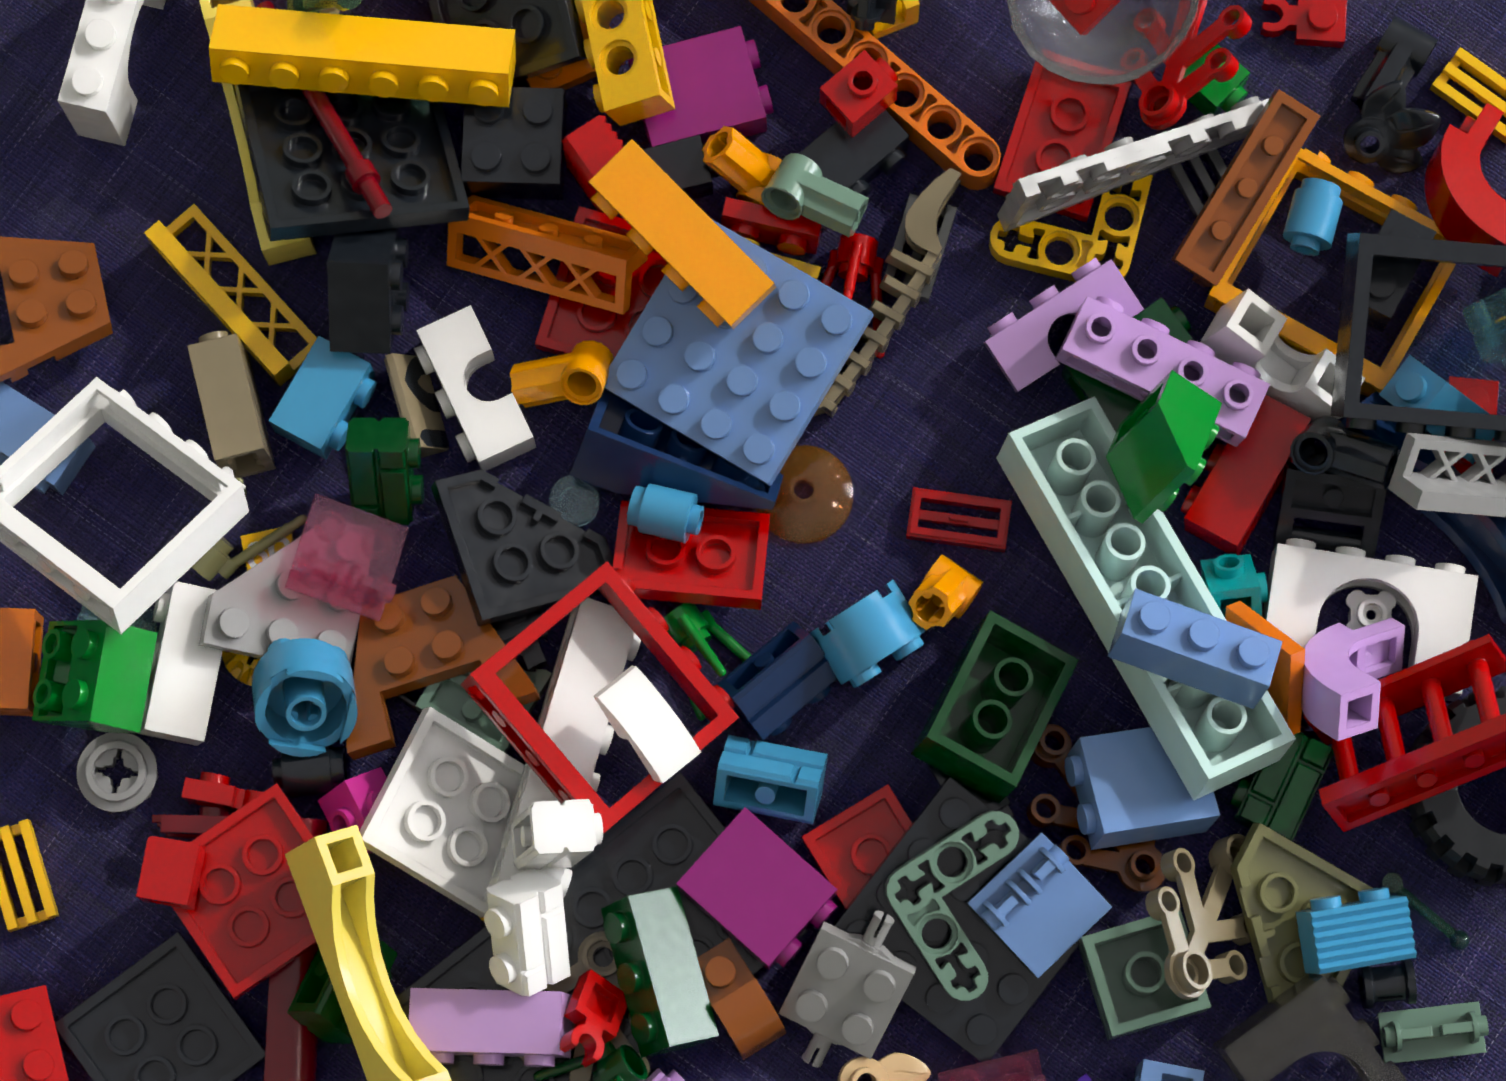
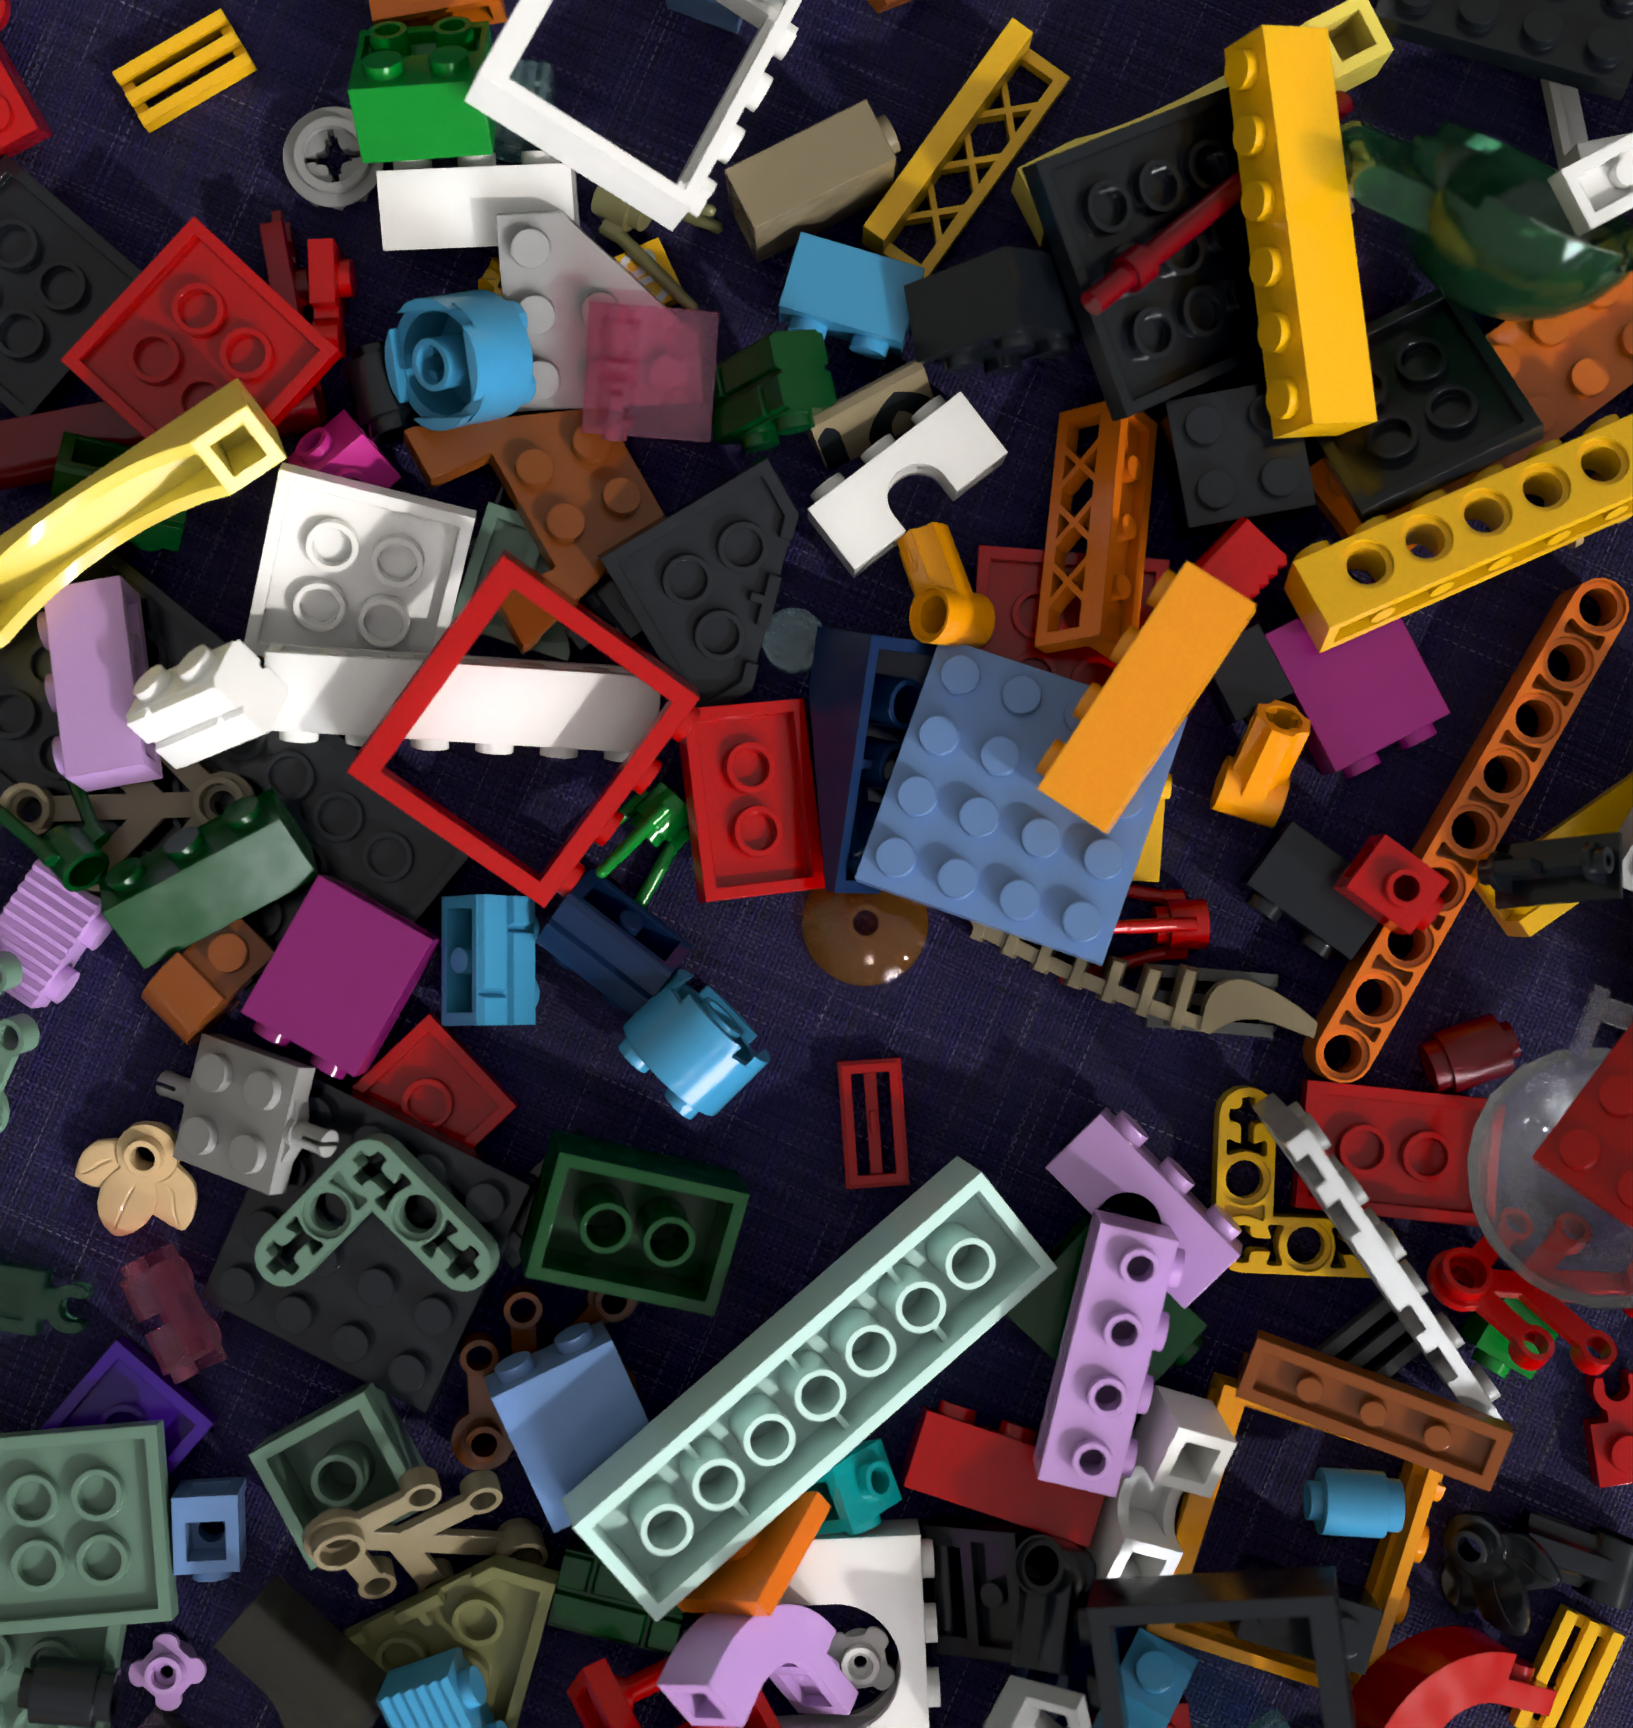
camera: 75 degrees right, 10 degrees up
(170, 872) = (181, 242): red panel -> none
(555, 834) = (325, 712): white brick -> none
(597, 1015) = (134, 813): red plate -> none
(648, 723) = (496, 795): white slope -> none
(665, 512) = (791, 757): dark azure brick -> none
(761, 225) = (1194, 834): red plate -> none
(802, 190) = (1245, 840): sand green piece -> none
(943, 594) = (765, 1127): light orange piece -> none
(999, 67) = (1469, 1053): none -> dark red brick
(1039, 904) = (394, 1330): medium blue hinge -> none
(1163, 444) = (1001, 1378): green slope -> none
(1195, 648) = (737, 1478): medium blue brick -> none

